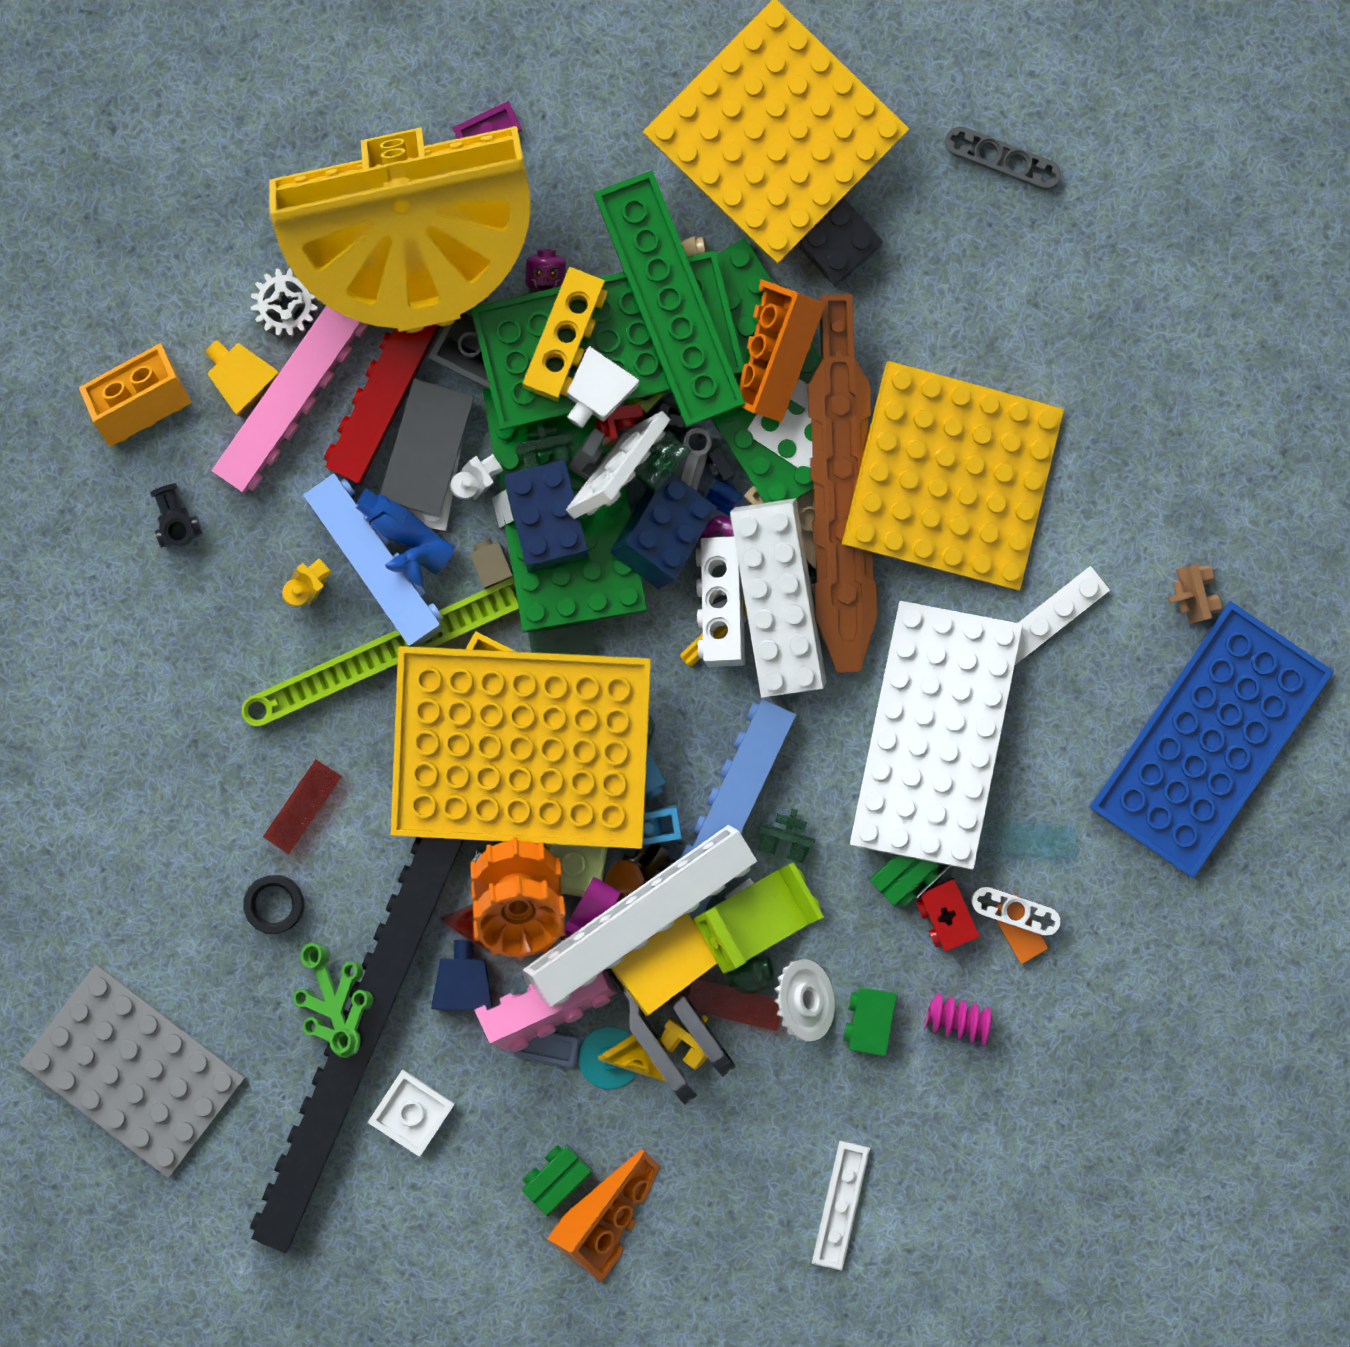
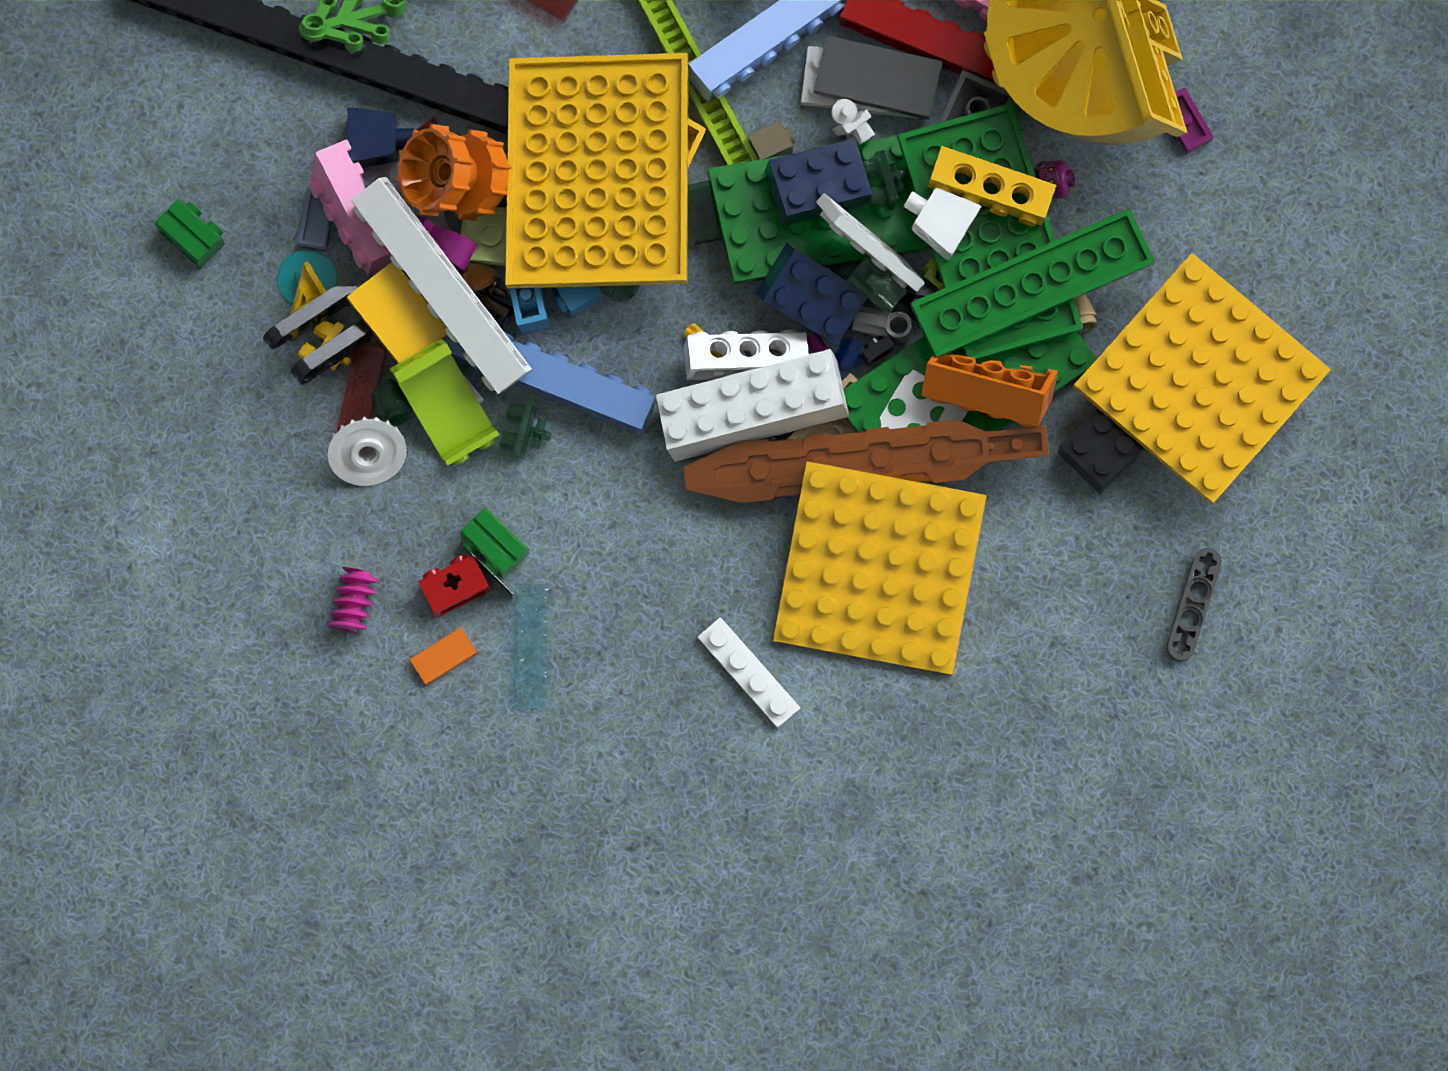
camera: 85 degrees right, 10 degrees down
(405, 528) = (801, 59): blue piece -> none
(411, 1112) = (249, 98): white plate -> none
(588, 455) = (878, 218): dark grey bracket -> none
(594, 1226) = (148, 272): orange wedge -> none
(622, 418) = (917, 249): red bracket -> none
(840, 1205) = (171, 500): white tile -> none
(870, 1020) = (349, 517): green brick -> none
(936, 735) = (627, 564): white plate -> none
(996, 896) = (459, 625): white beam -> none
(1192, 595) = (791, 806): medium nougat hips -> none
(1211, 739) = (636, 832): blue plate -> none

